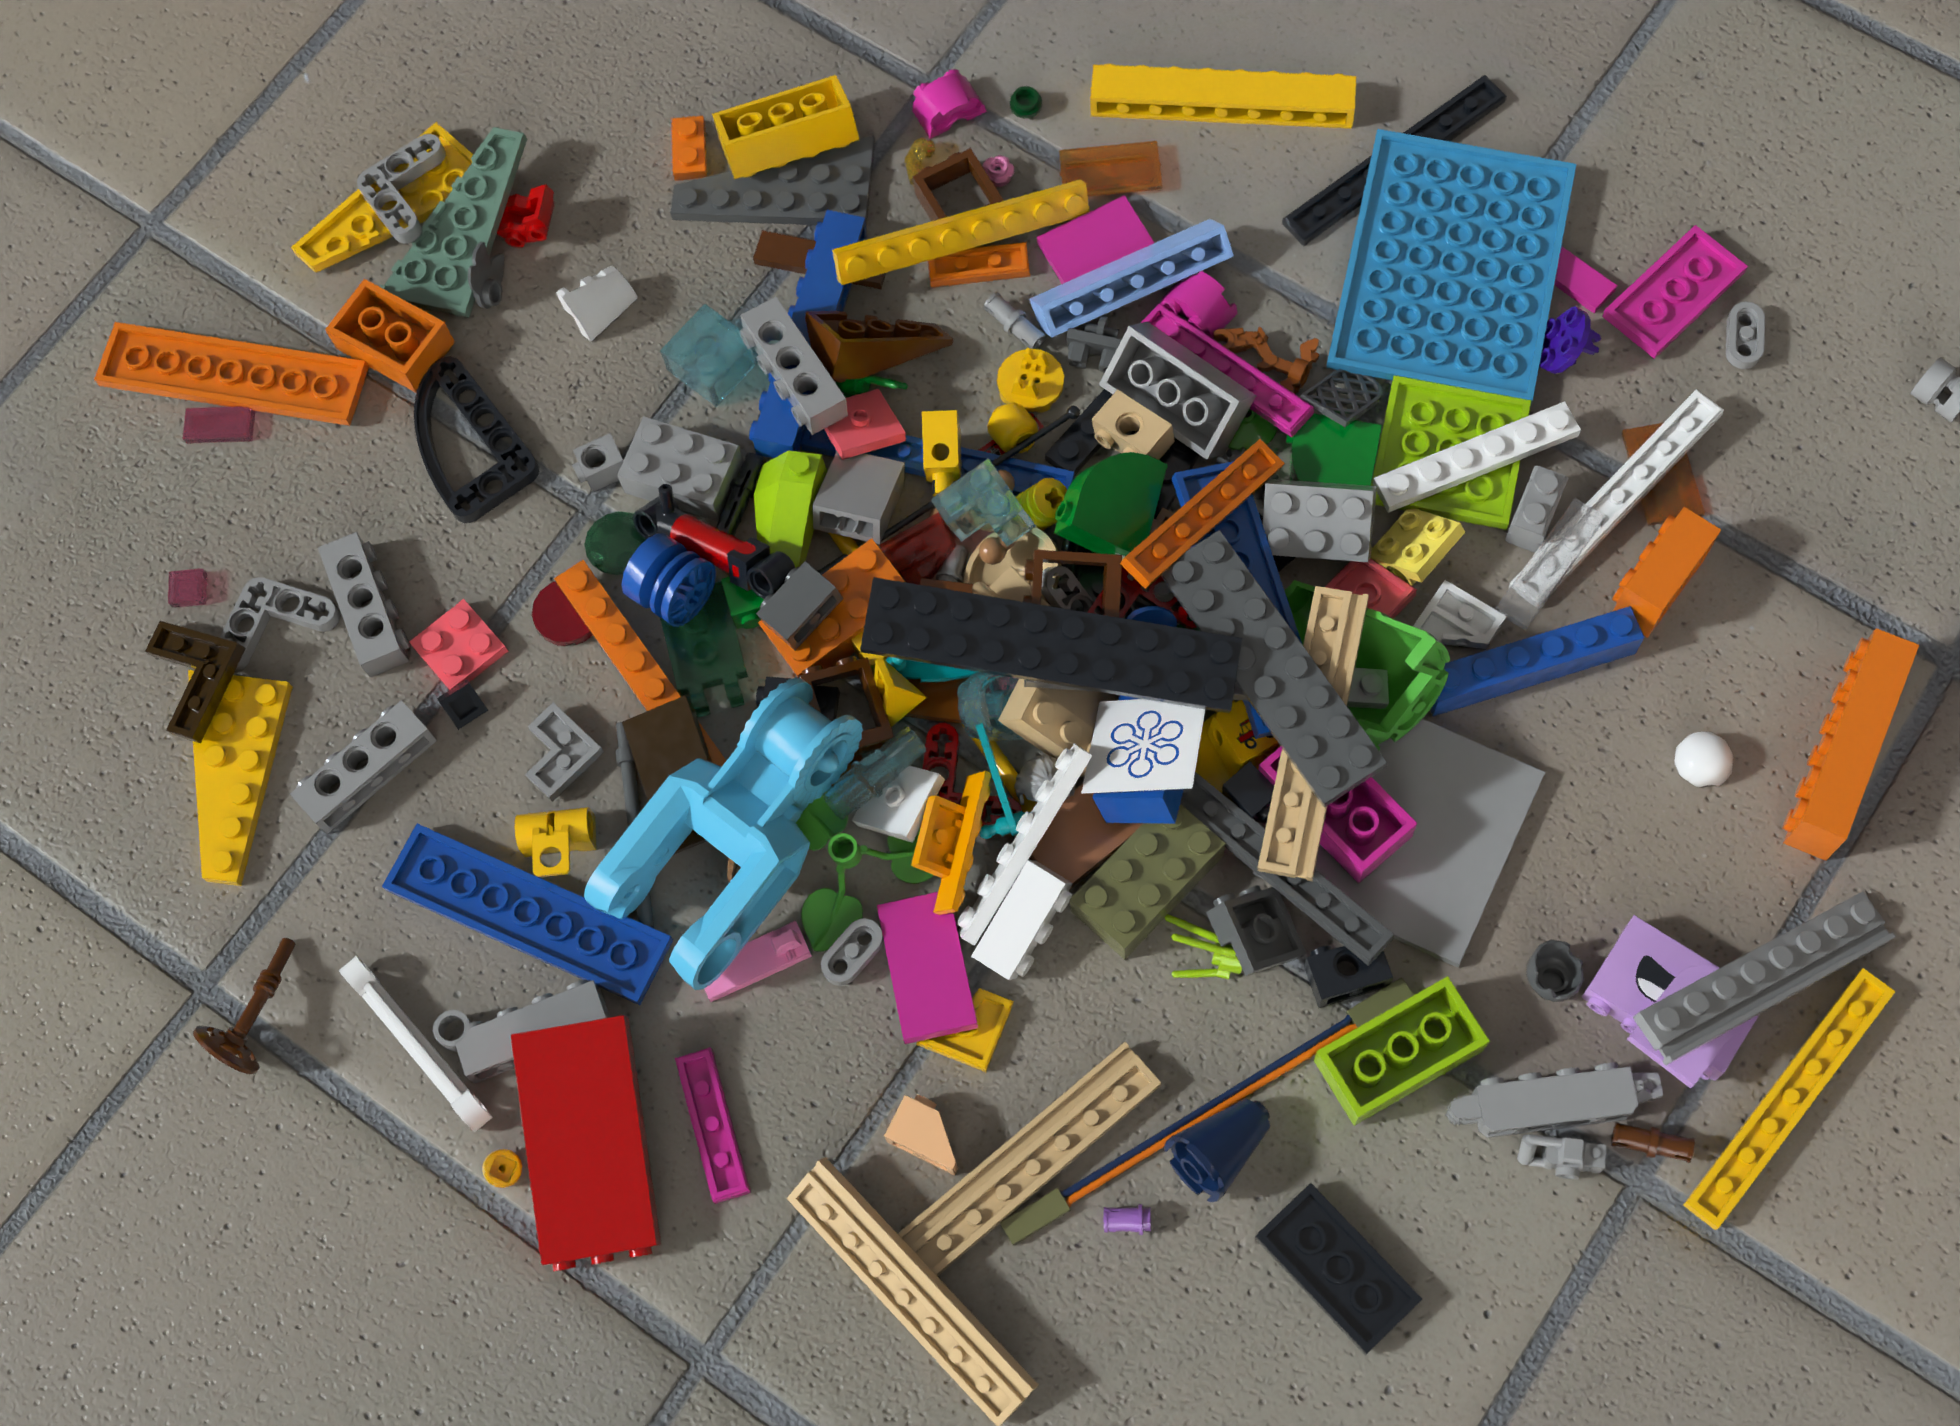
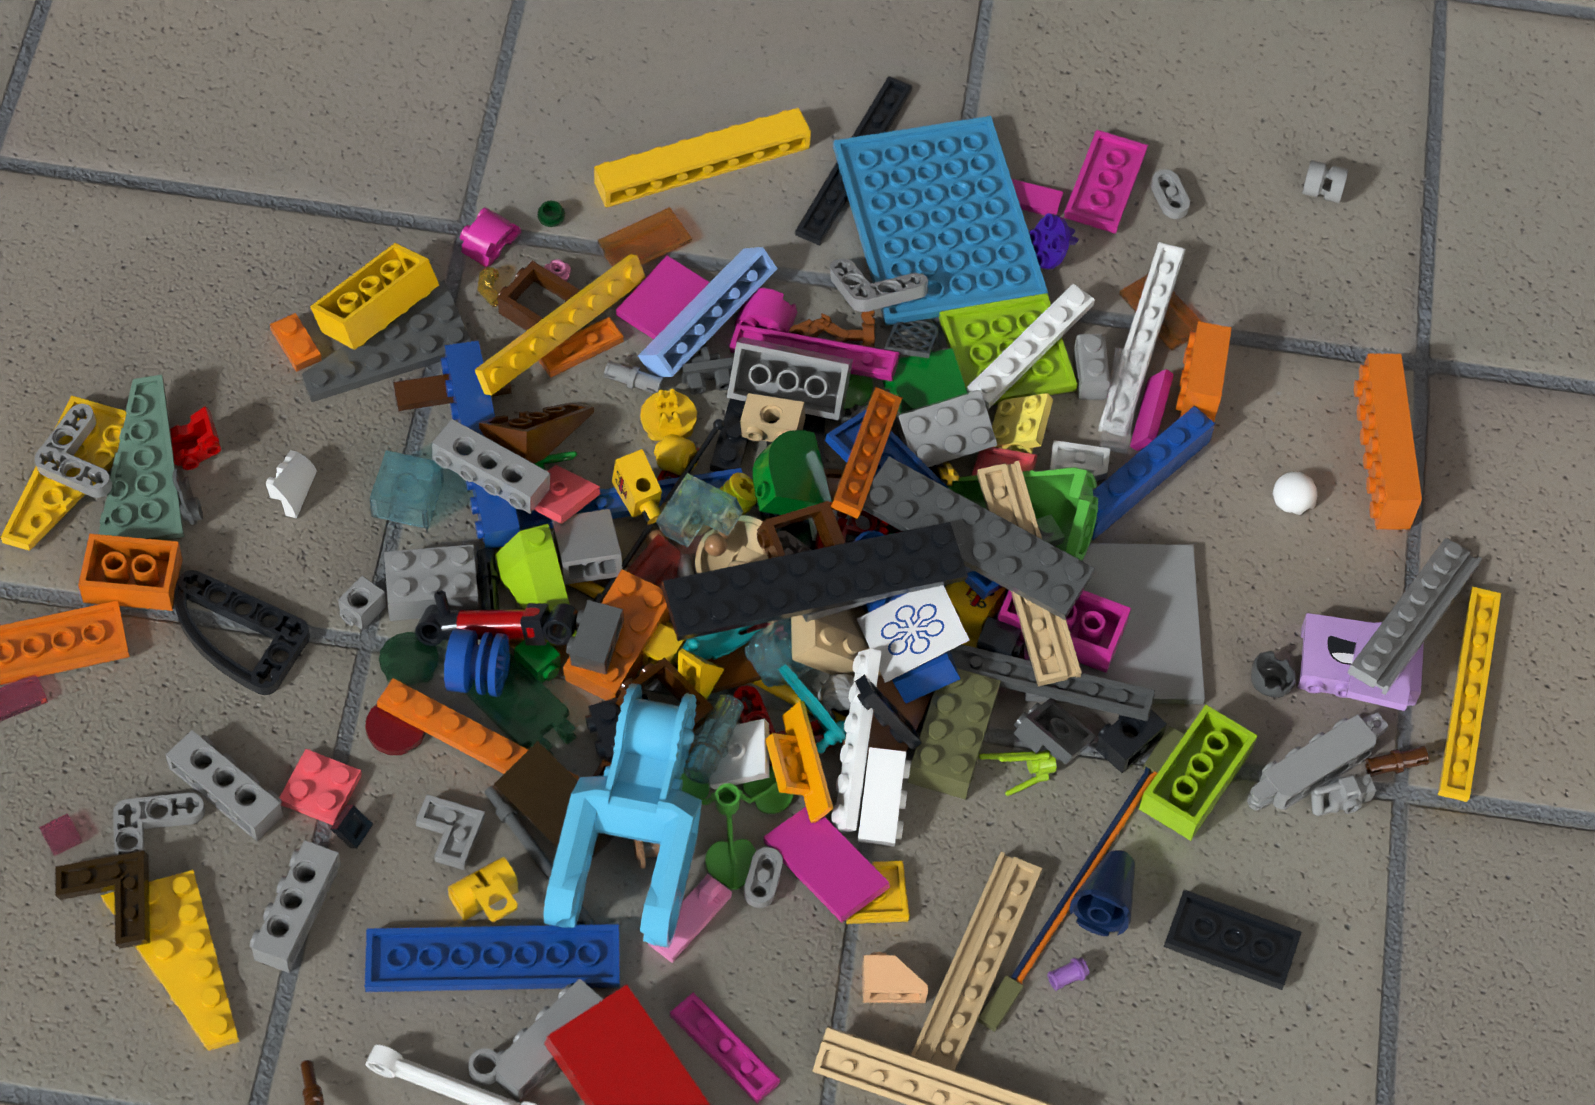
camera: 40 degrees left, 10 degrees down
(1066, 829) = (887, 713): none -> black plate
(1294, 573) = (947, 473): none -> yellow axle
(1364, 334) = (868, 297): none -> light grey beam
(1582, 588) = (1151, 409): none -> dark pink tile

